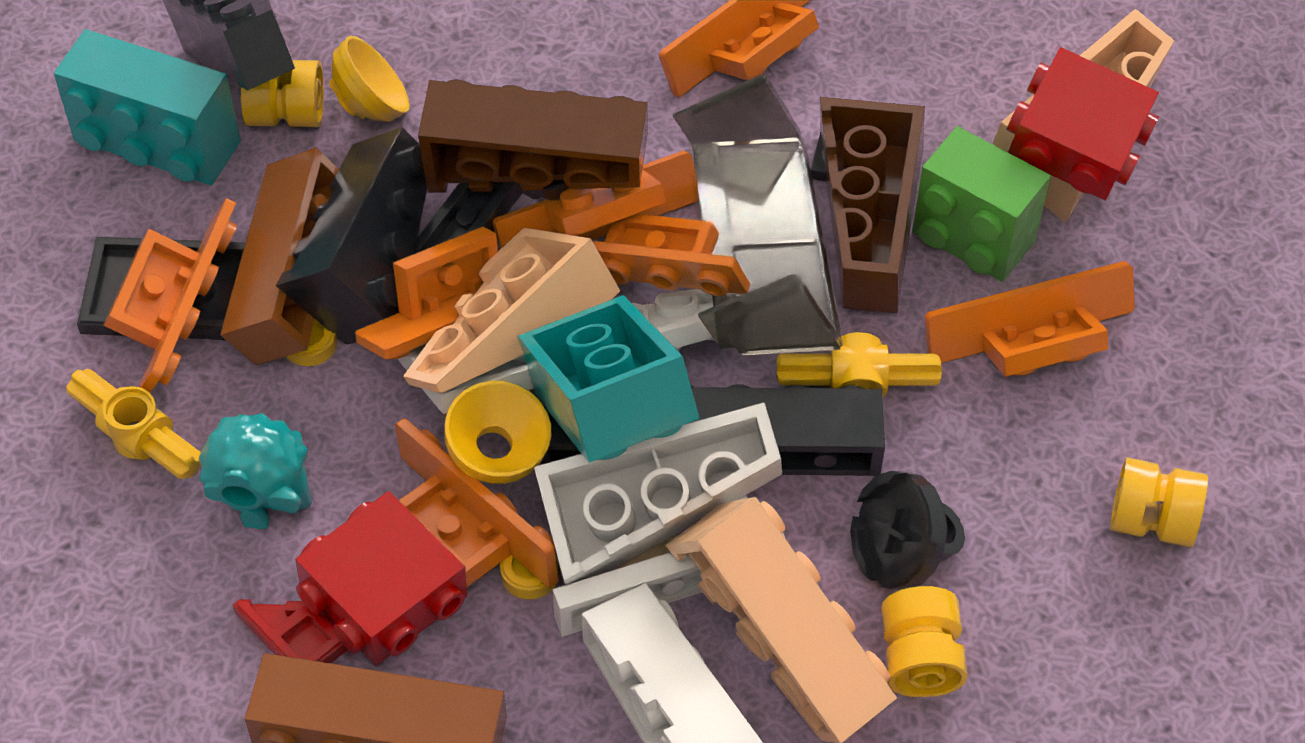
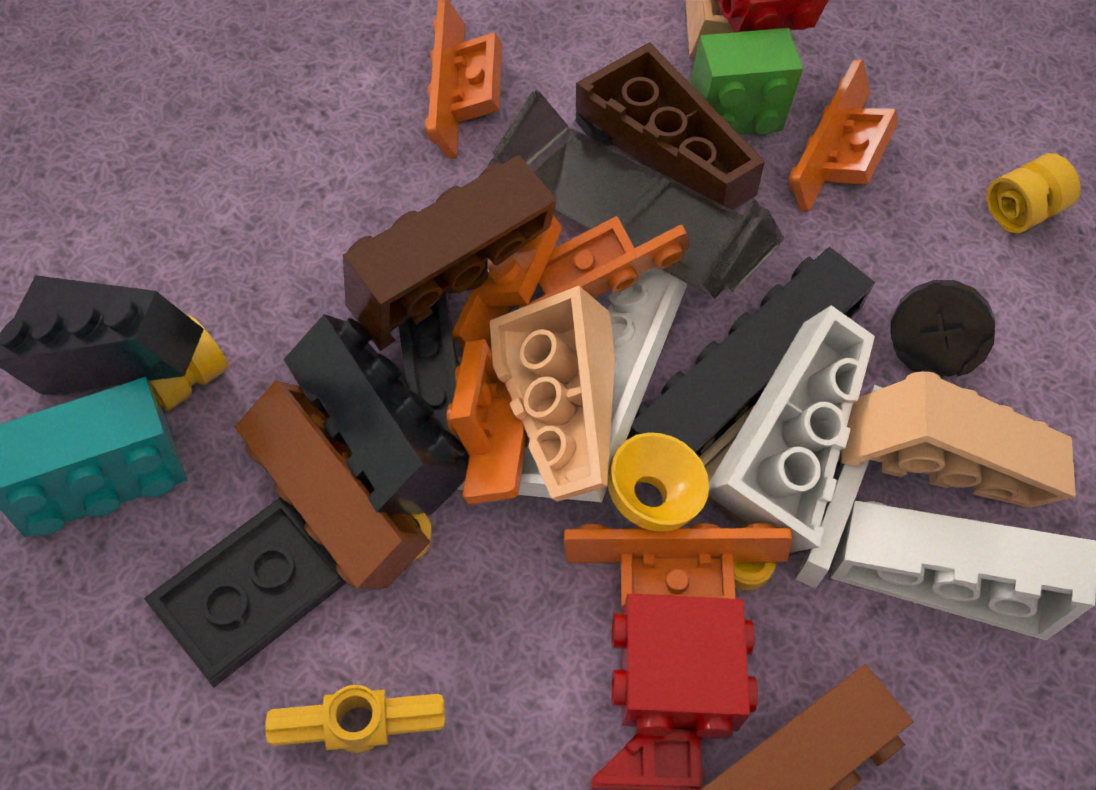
camera: 50 degrees left, 5 degrees up
(161, 289) = (273, 594): orange bracket -> none
(255, 467) = (502, 665): teal animal -> none
(366, 82) = (235, 308): yellow piece -> none
(609, 378) = (714, 374): teal brick -> none
(860, 363) = (798, 244): yellow axle -> none
(921, 639) = (1027, 387): yellow wheel -> none

